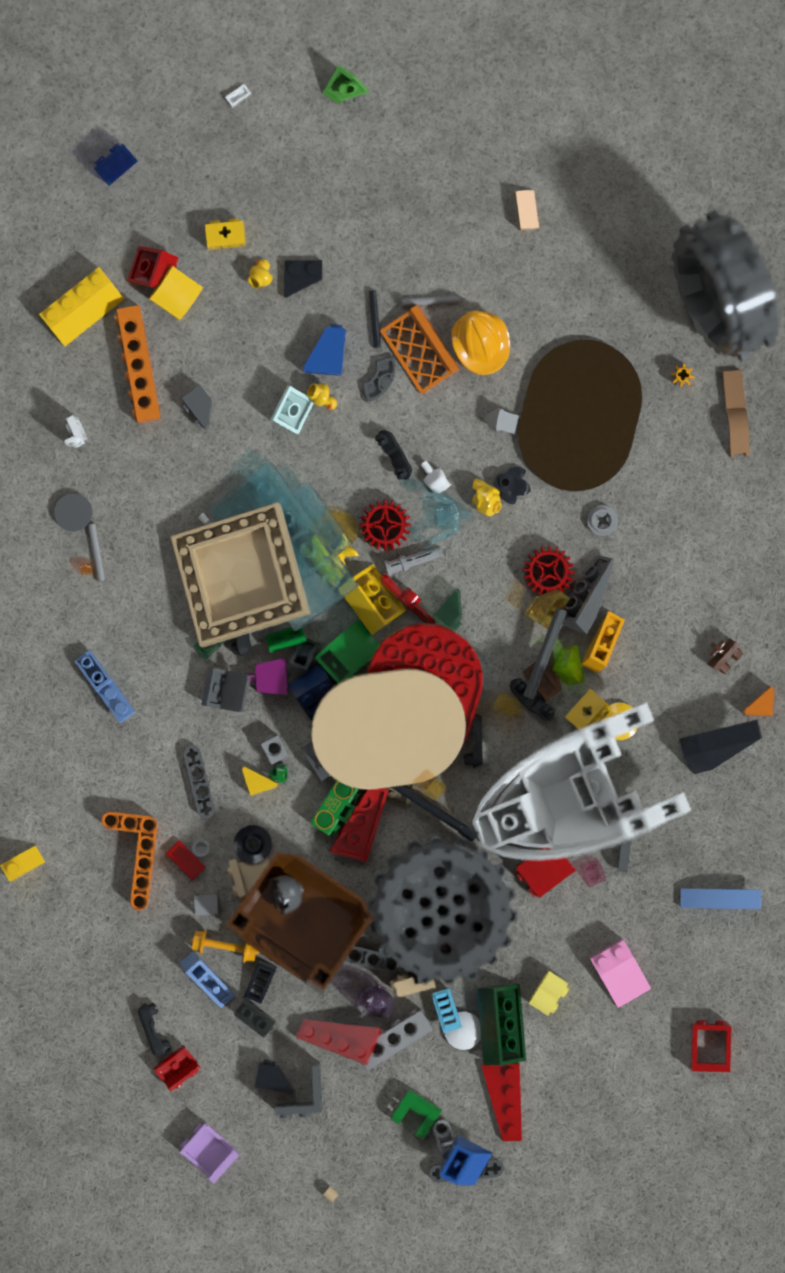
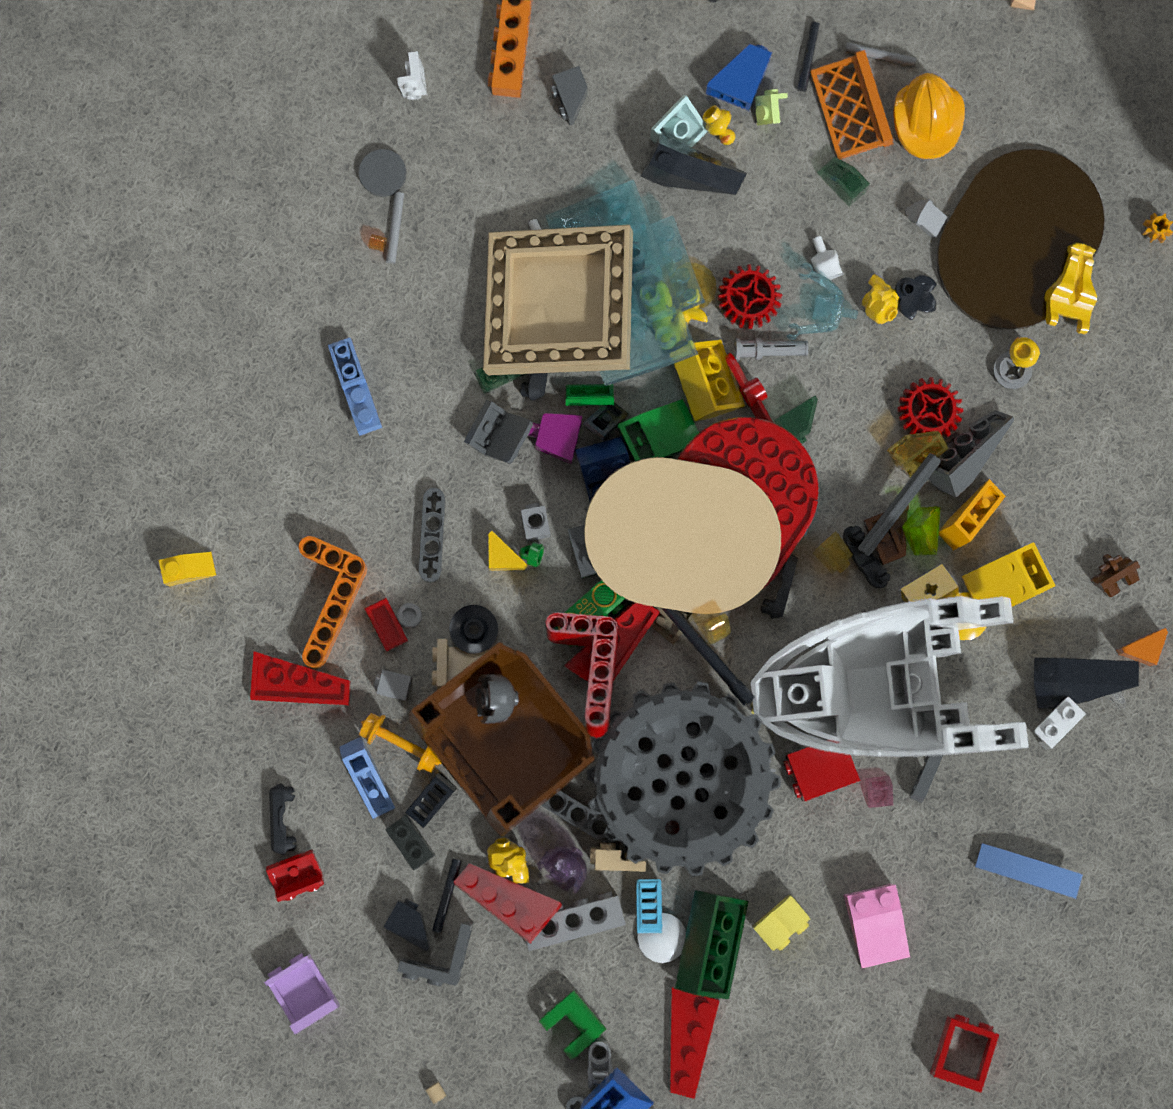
camera: 15 degrees right, 5 degrees down
(127, 926) = (288, 682): none -> red wing
(293, 1048) = (446, 895): none -> black bar
(303, 438) = (687, 168): none -> black wedge
(332, 1008) = (508, 860): none -> yellow head
(355, 372) = (768, 107): none -> yellowish green bracket
(355, 845) = (599, 664): none -> red beam
(381, 380) = (795, 128): dark grey tile -> none
(393, 450) = (787, 217): black piece -> none
(430, 410) = (844, 180): none -> clear green slope
(606, 506) = (1024, 352): none -> yellow animal
(631, 447) = (1073, 291): none -> yellow animal
(644, 684) = (1013, 576): none -> yellow slope
(711, 782) = (1059, 723): none -> white bracket

